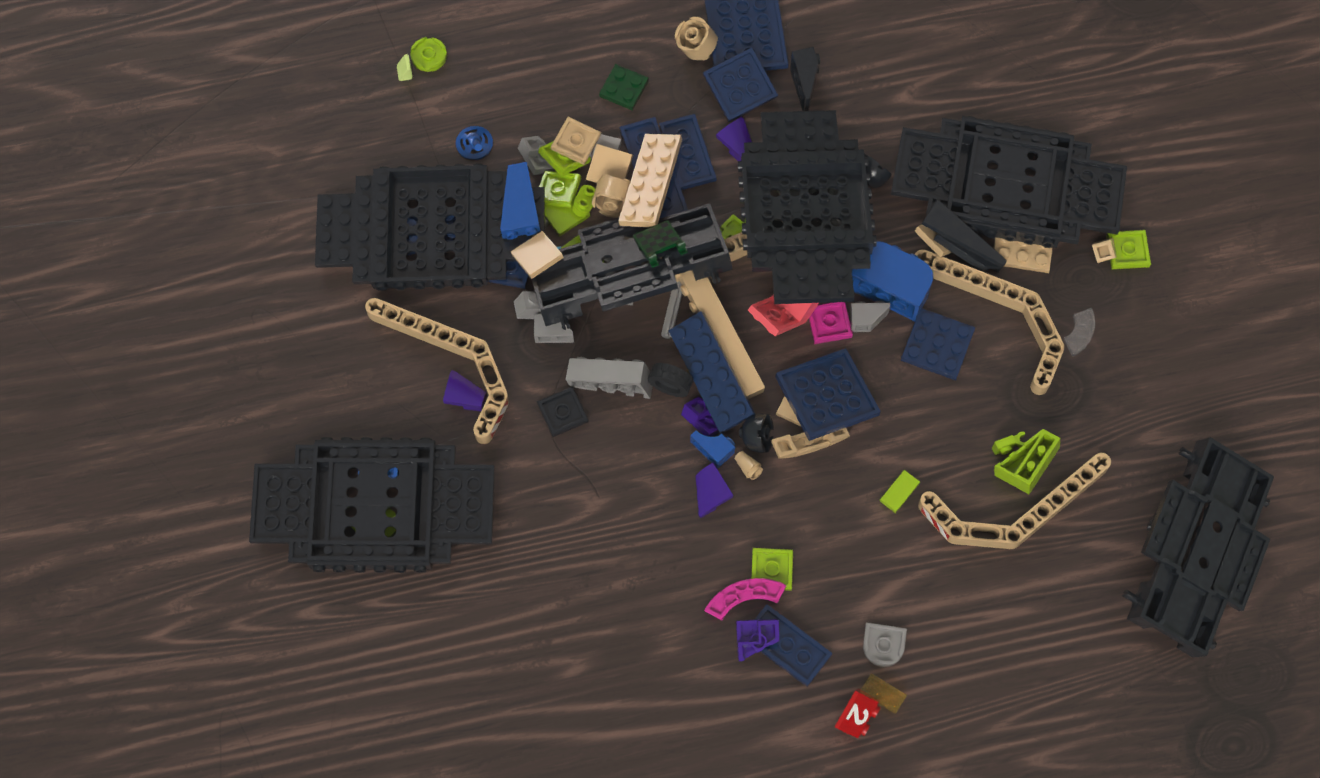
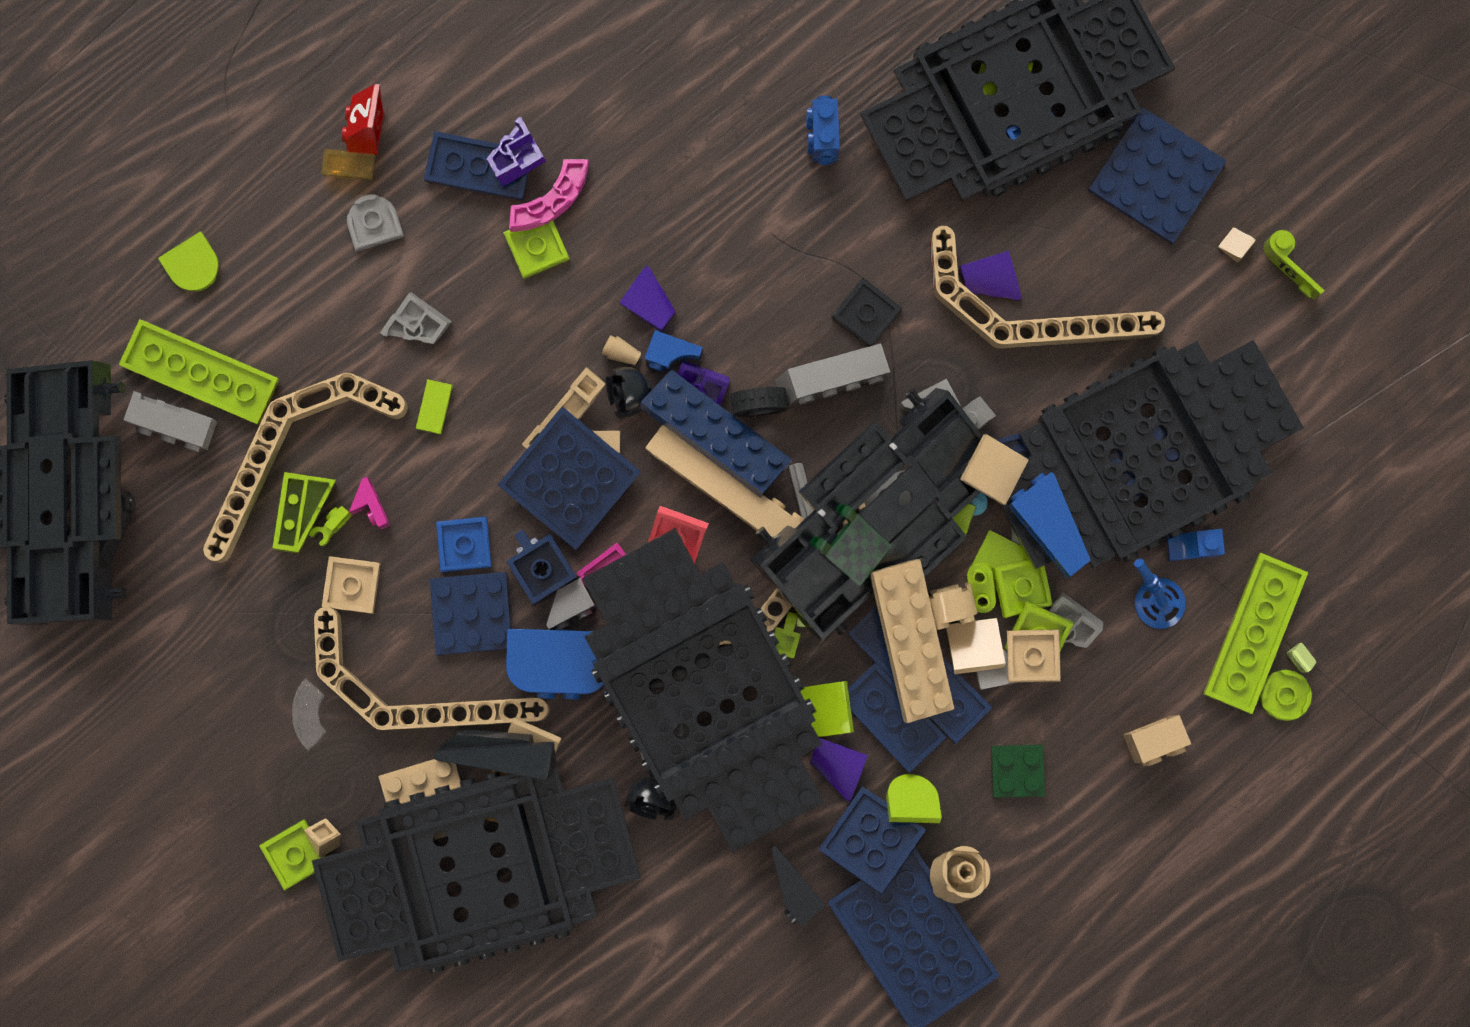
camera: 150 degrees right, 15 degrees up
(258, 314) = (1277, 249): none -> lime door
(285, 335) = (1236, 244): none -> tan slope
(310, 405) = (1157, 176): none -> dark blue plate
(424, 95) = (1255, 633): none -> lime plate
(427, 156) = (1196, 545): none -> blue arch
(523, 542) = (824, 127): none -> blue brick
(526, 58) = (1157, 739): none -> tan brick
(701, 95) = (913, 800): none -> lime tile
(725, 174) = (832, 708): none -> lime tile
(878, 355) = (526, 564): none -> dark blue hinge
(884, 556) = (416, 321): none -> light grey slope
(921, 390) = (464, 544): none -> blue tile
(976, 447) = (367, 498): none -> dark pink slope
(1013, 400) = (351, 585): none -> tan tile
(1034, 678) = (192, 264): none -> lime tile
(1061, 595) = (199, 372): none -> lime plate
(1097, 566) = (170, 422): none -> light grey wedge

